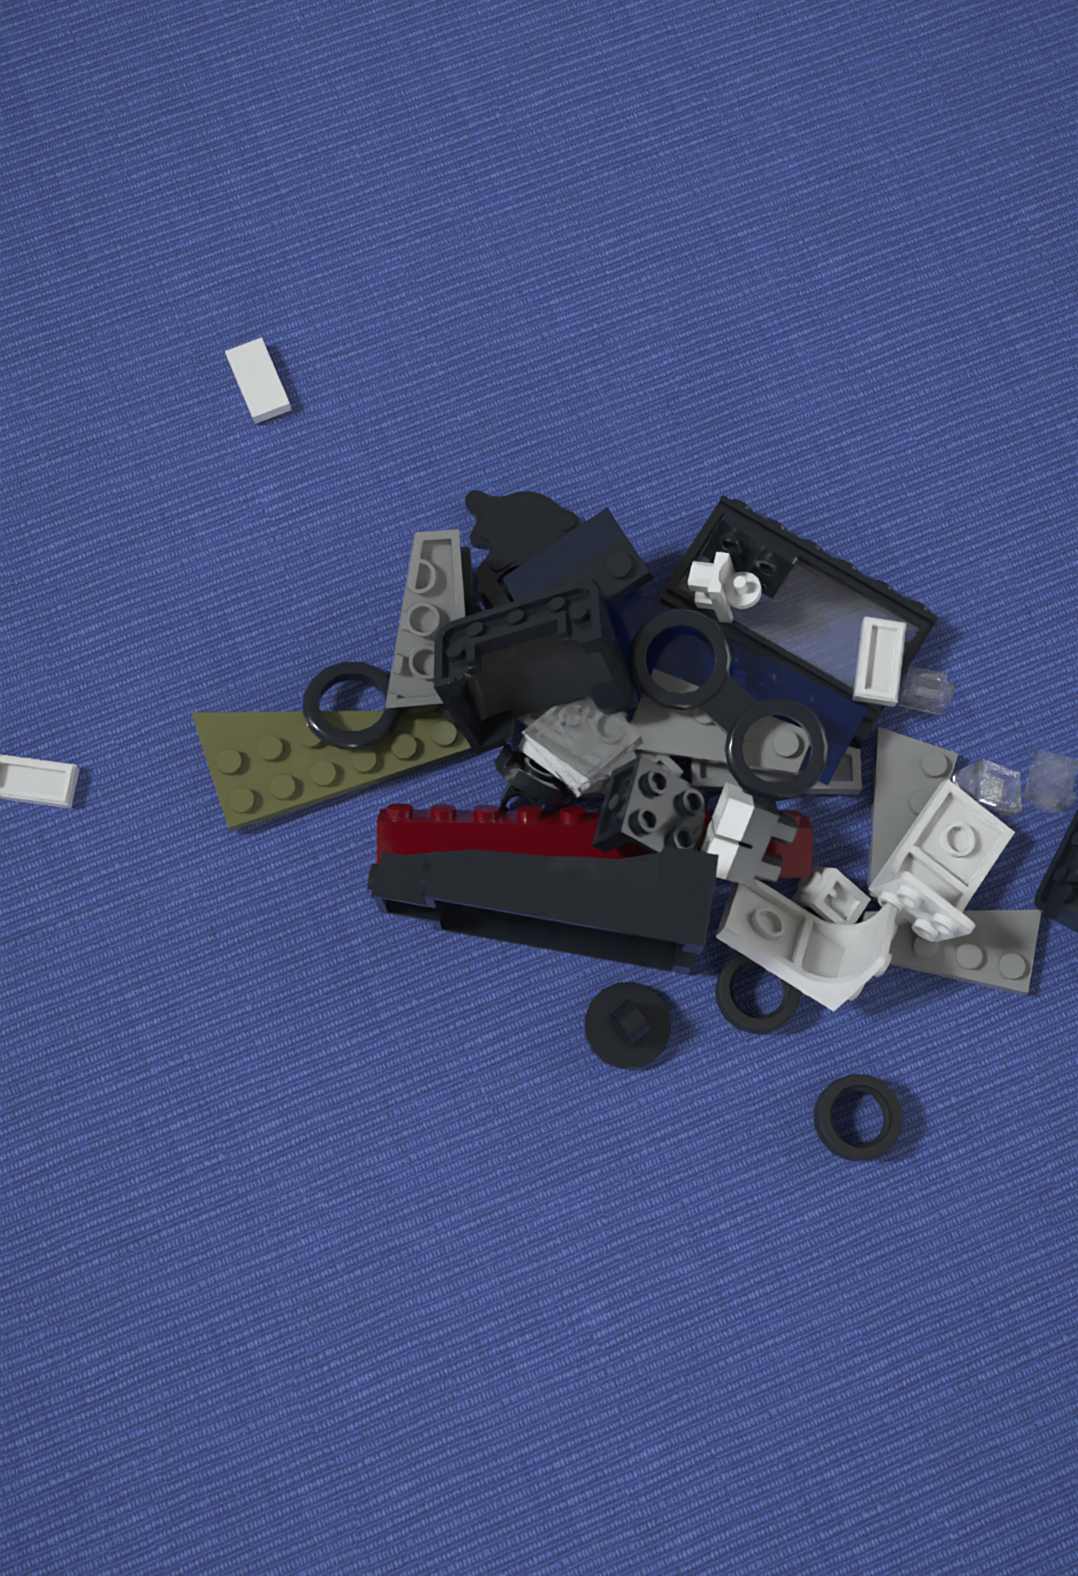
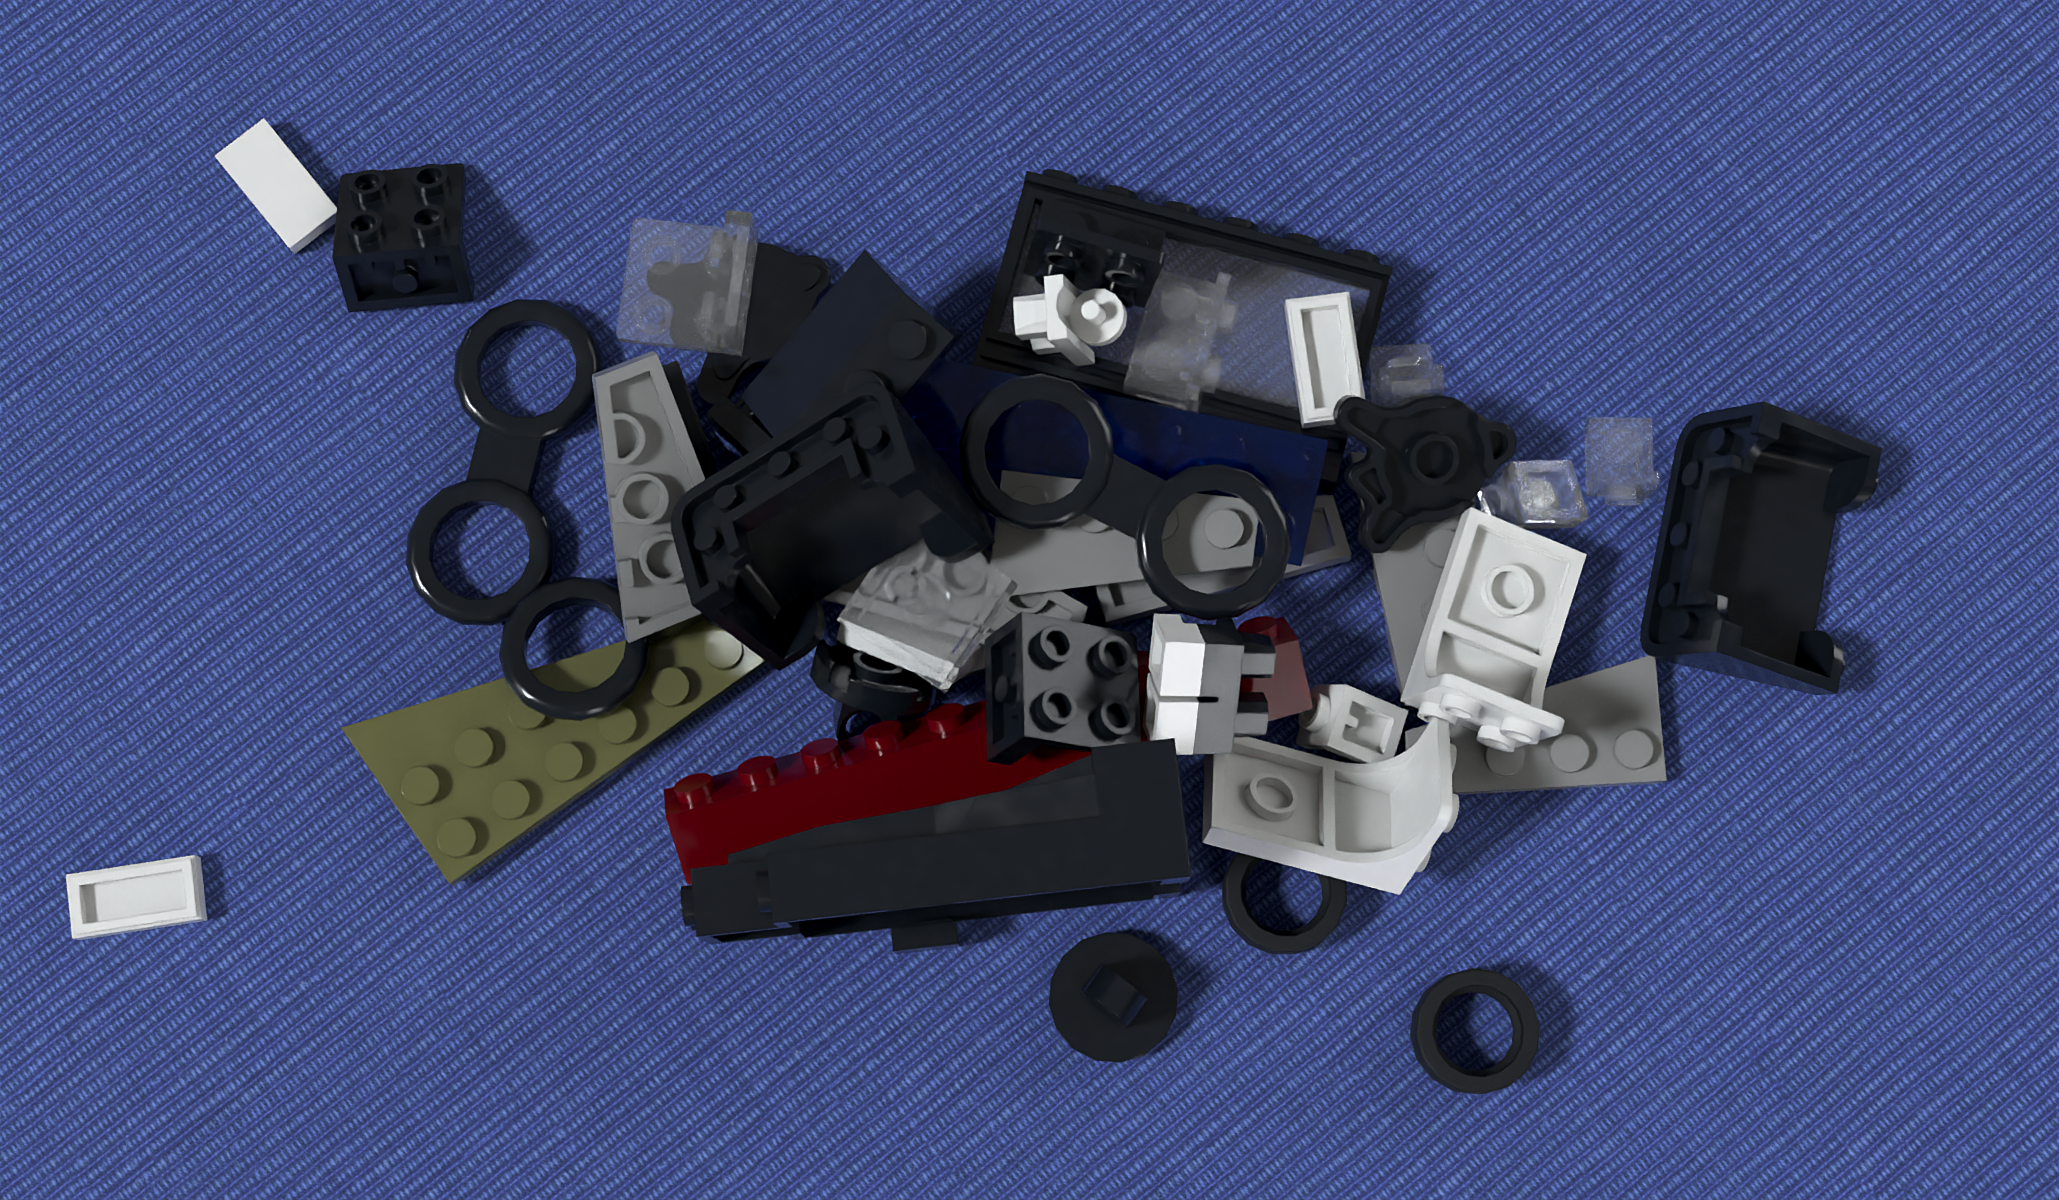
camera: 15 degrees left, 5 degrees up
(323, 431) = (402, 238): none -> black bracket
(342, 581) = (503, 460): none -> black bar
(492, 504) = (689, 284): none -> clear bracket
(518, 949) = (924, 936): none -> black tile
(789, 622) = (1178, 340): none -> clear bracket
(924, 741) = (1420, 461): none -> black tile

